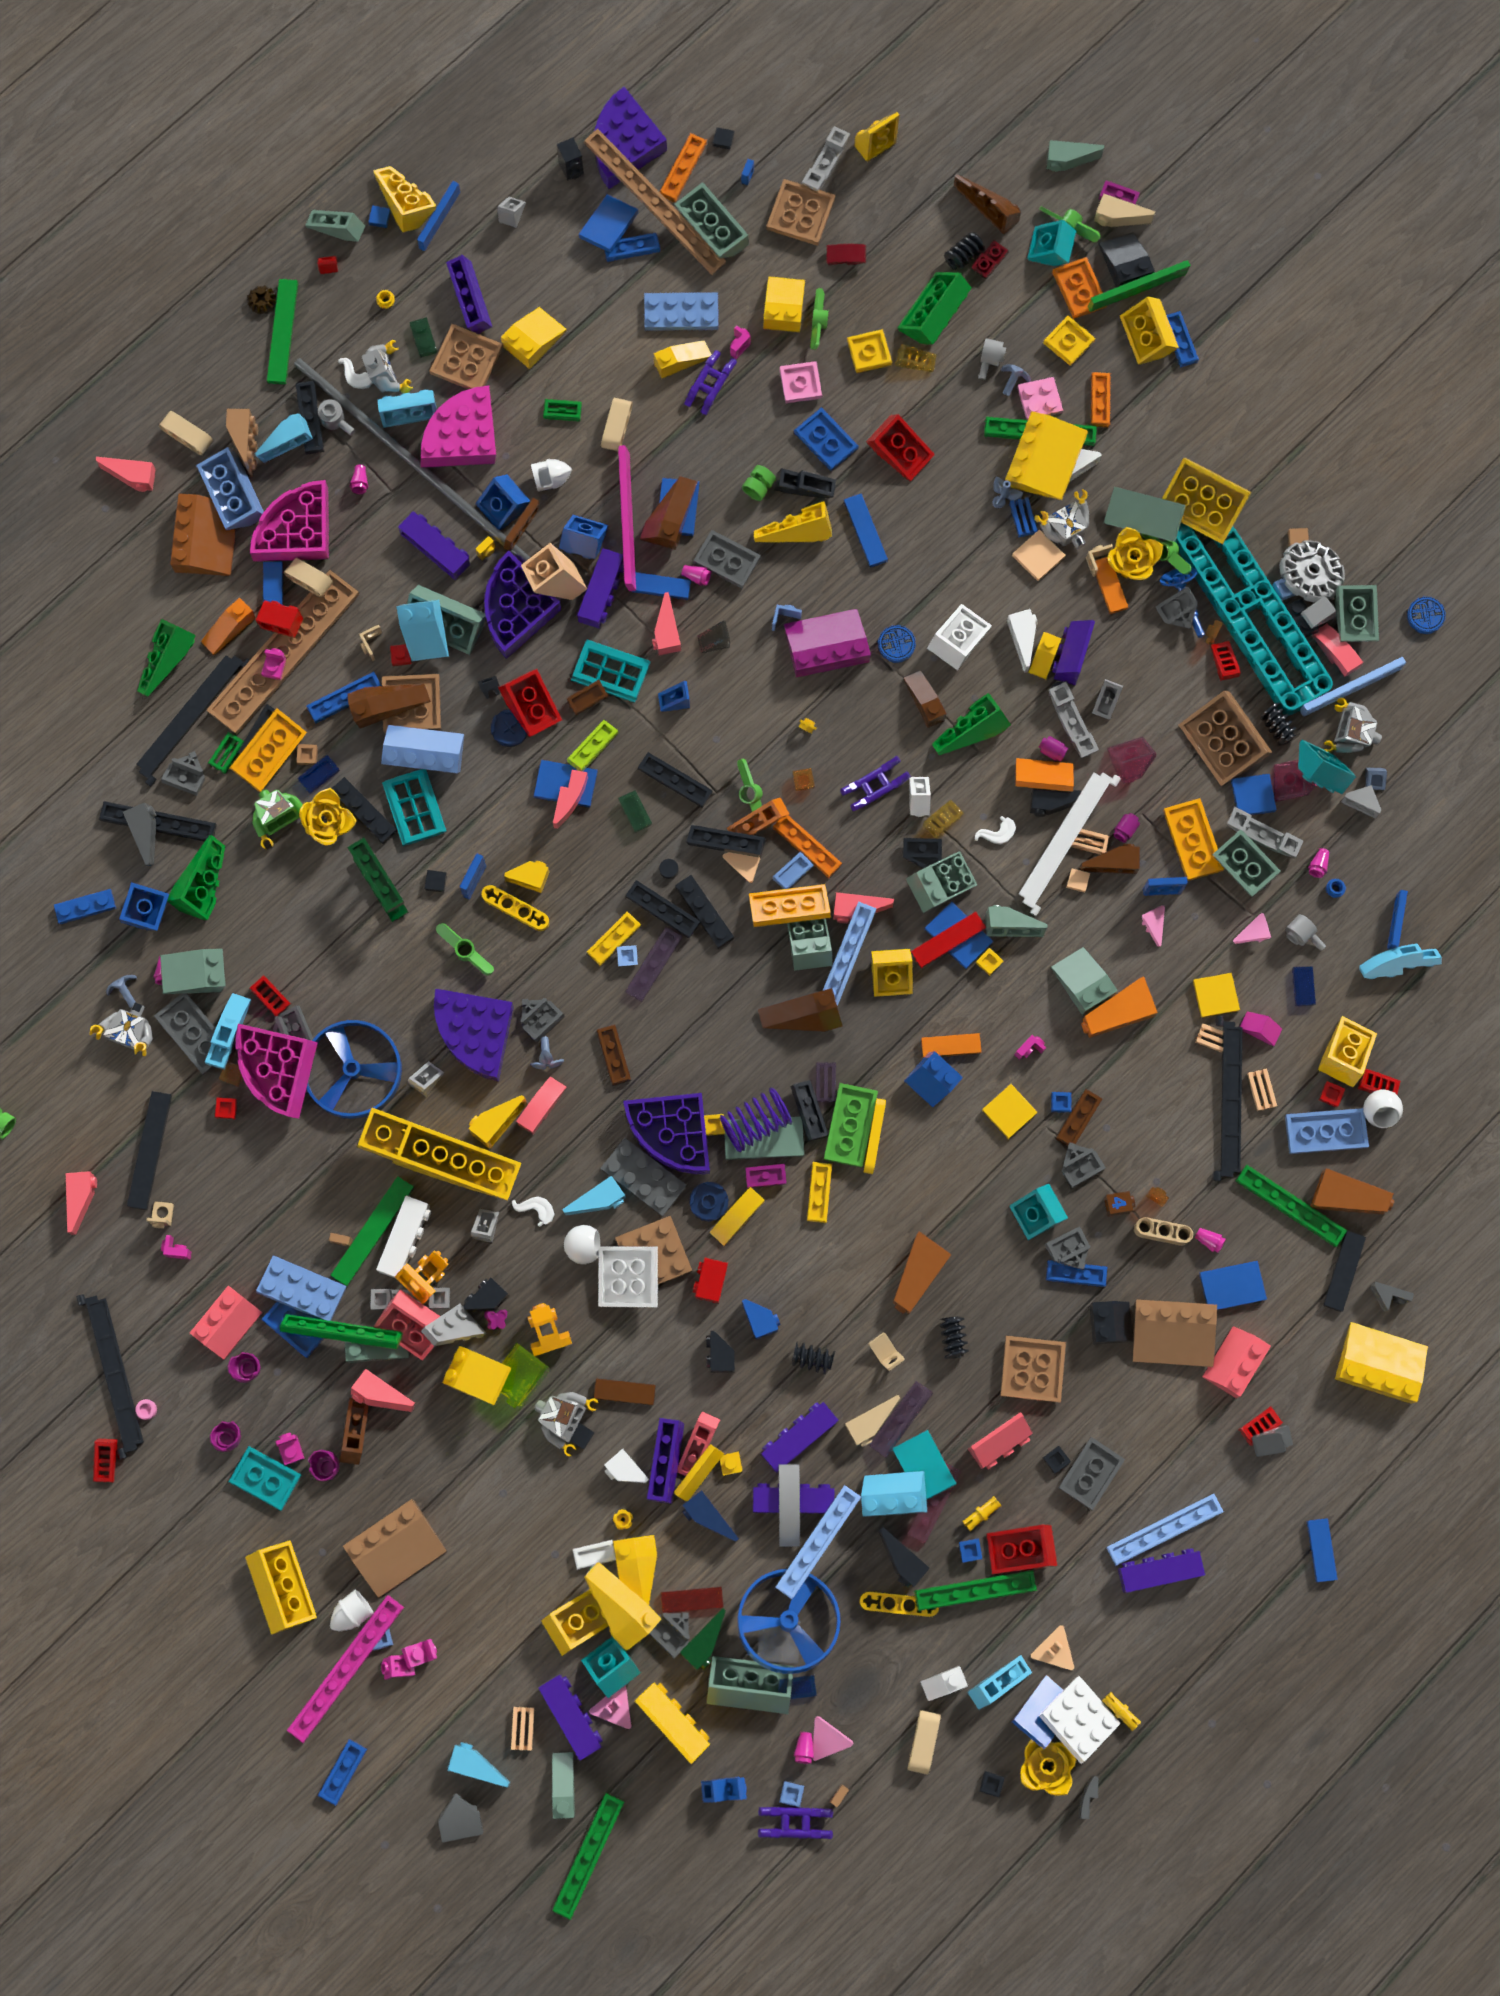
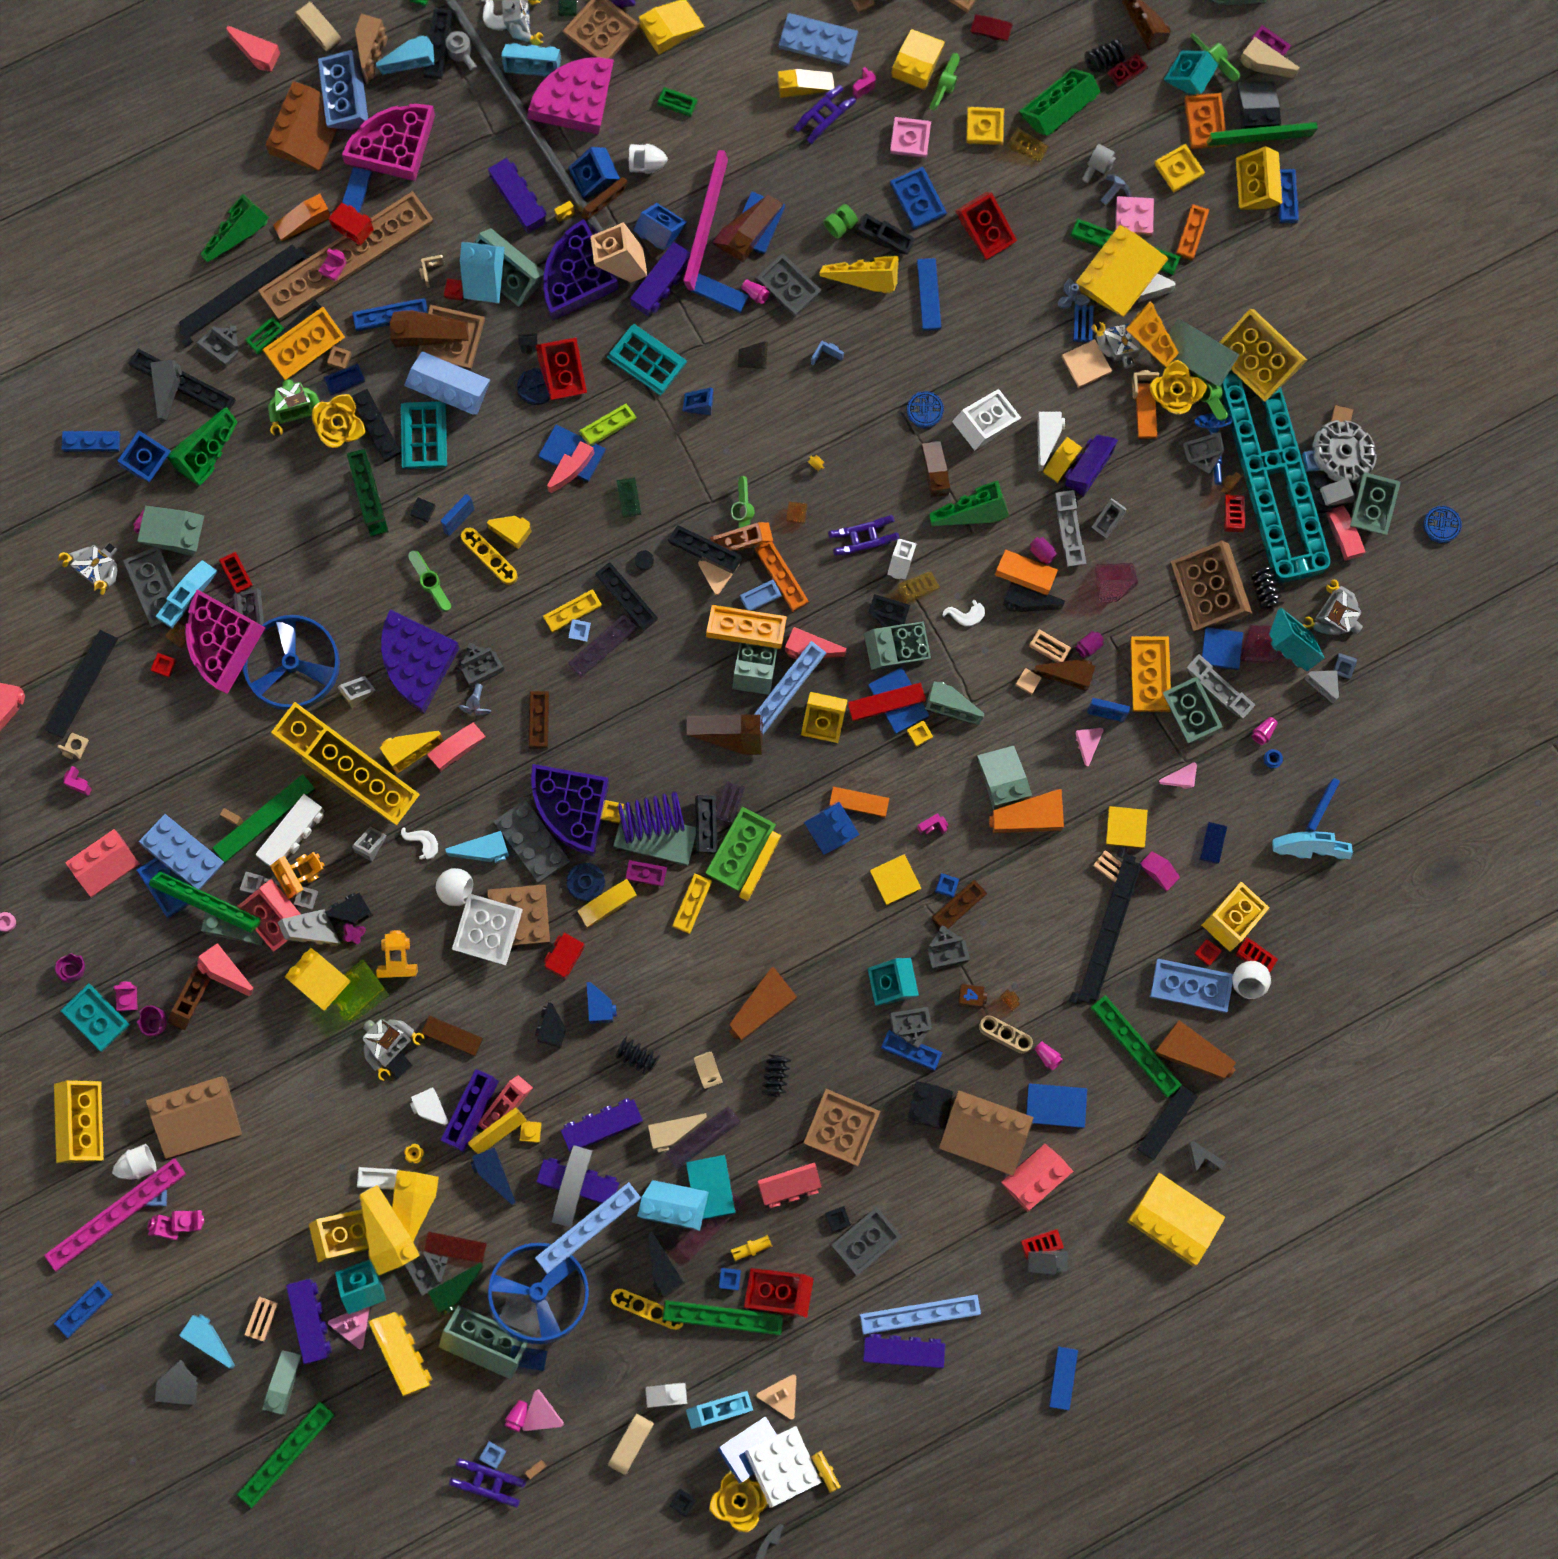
camera: 15 degrees right, 0 degrees up
(120, 984) = (101, 522): sand blue plant -> none
(244, 1367) = (106, 909): magenta hair -> none
(308, 577) = (390, 192): tan beam -> none
(359, 480) = (466, 115): dark pink cone -> none
(587, 697) = (617, 378): reddish brown tile -> none
(616, 424) = (723, 128): tan beam -> none
(666, 632) = (710, 335): coral slope -> none
(675, 779) = (675, 478): black plate -> none
(704, 911) = (665, 610): black plate -> none
(724, 1789) = (429, 1431): blue brick -> none
(827, 643) = (859, 390): magenta slope -> none
(1064, 838) = (1026, 638): white piece -> none
(1095, 510) = (1152, 335): none -> light orange wing
(1264, 1072) = (1142, 929): light nougat tile -> none
(1303, 930) = (1228, 789): light grey piece -> none
(1352, 686) = (1349, 572): light blue tile -> none

